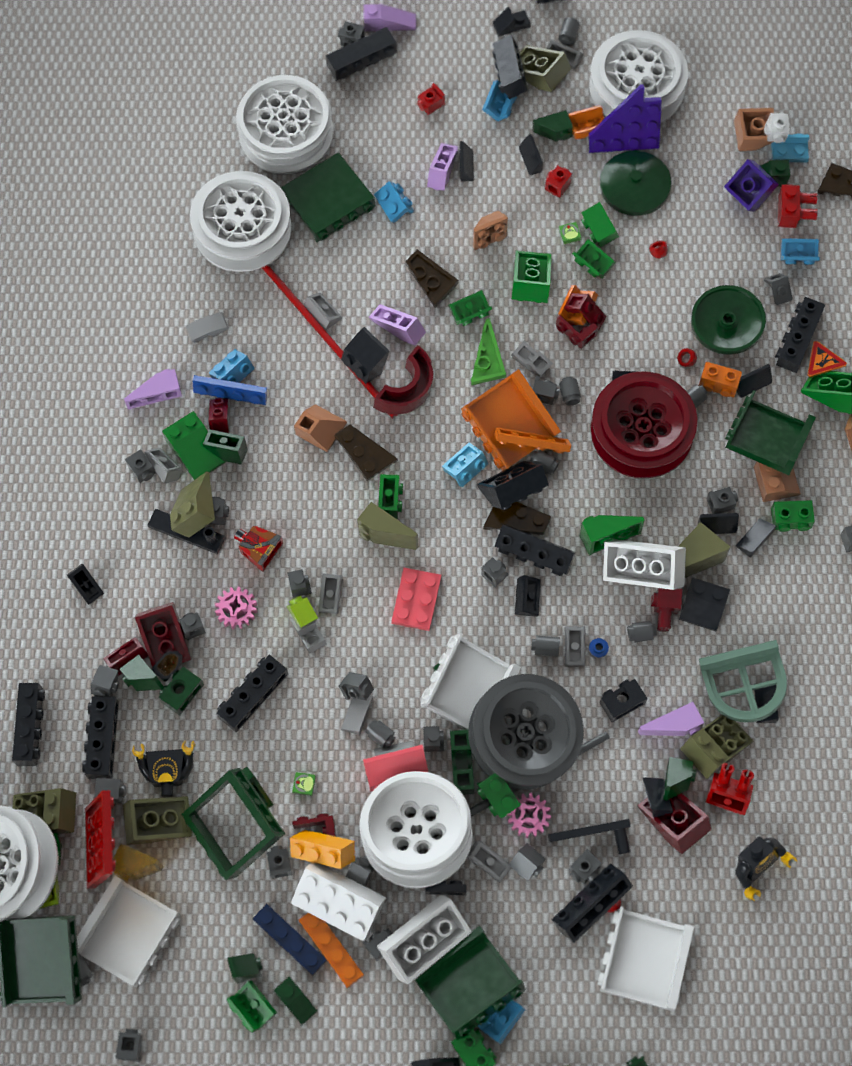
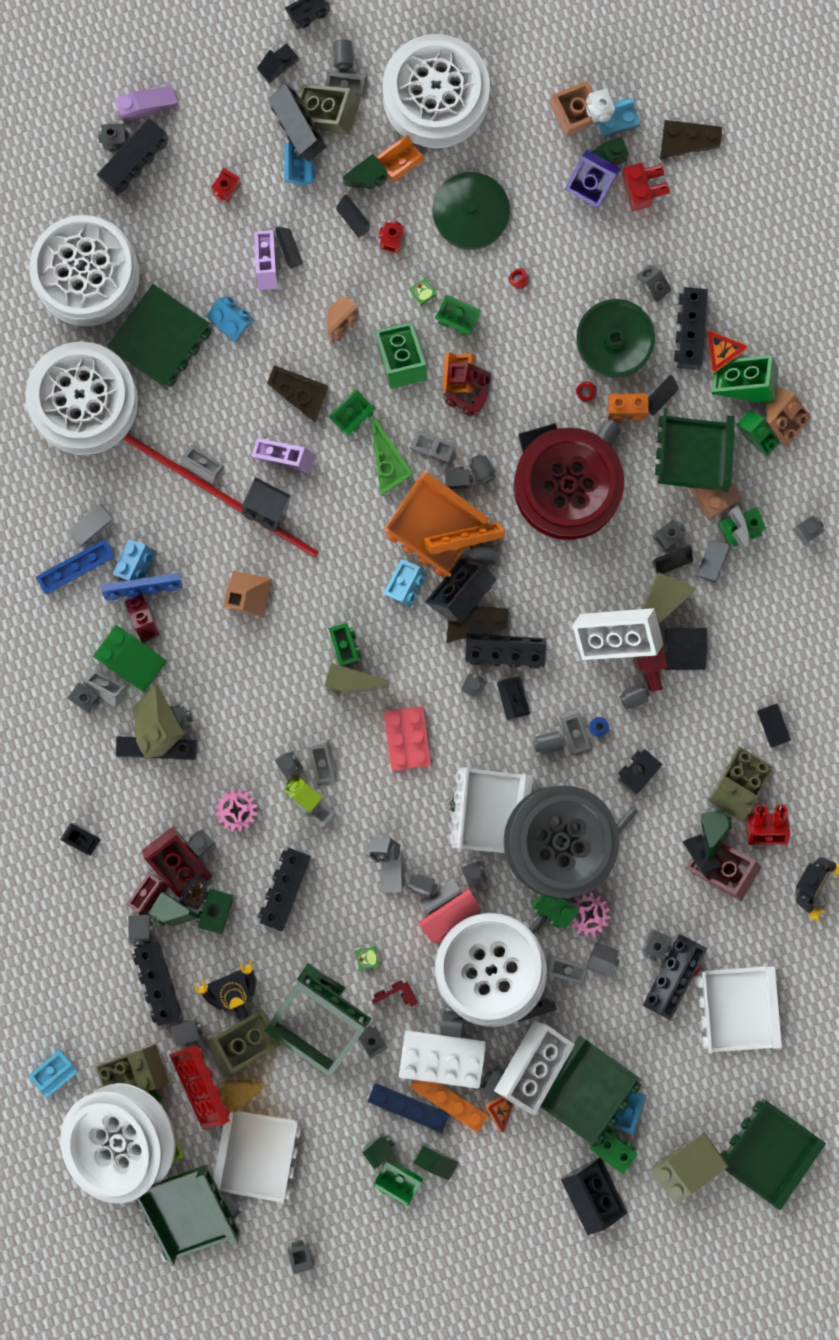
camera: 20 degrees left, 15 degrees up
(28, 724) = (82, 997): black brick -> none
(156, 389) = (69, 608): lavender slope -> none
(179, 356) = (75, 566): none -> blue plate
(226, 446) = (162, 648): dark green slope -> none
(258, 546) = (233, 739): torso -> none
(322, 849) = (410, 1018): light orange brick -> none
(364, 452) = (301, 605): dark brown wing -> none
(376, 973) = (500, 1111): none -> piece
(410, 397) = (326, 534): dark red brick -> none
(462, 761) = (509, 888): dark green arch -> none
(599, 224) = (451, 275): green brick -> none
(605, 528) = (565, 610): green slope -> none
(619, 831) = (673, 896): black piece -> none
(629, 126) = (446, 152): dark purple wing -> none
(676, 723) = (700, 773): lavender slope -> none
(739, 660) = (737, 694): sand green window -> none
(789, 513) = (741, 534): none -> light grey slope
(799, 250) = (663, 234): dark azure bracket -> none
(834, 440) = (758, 432): none -> green slope

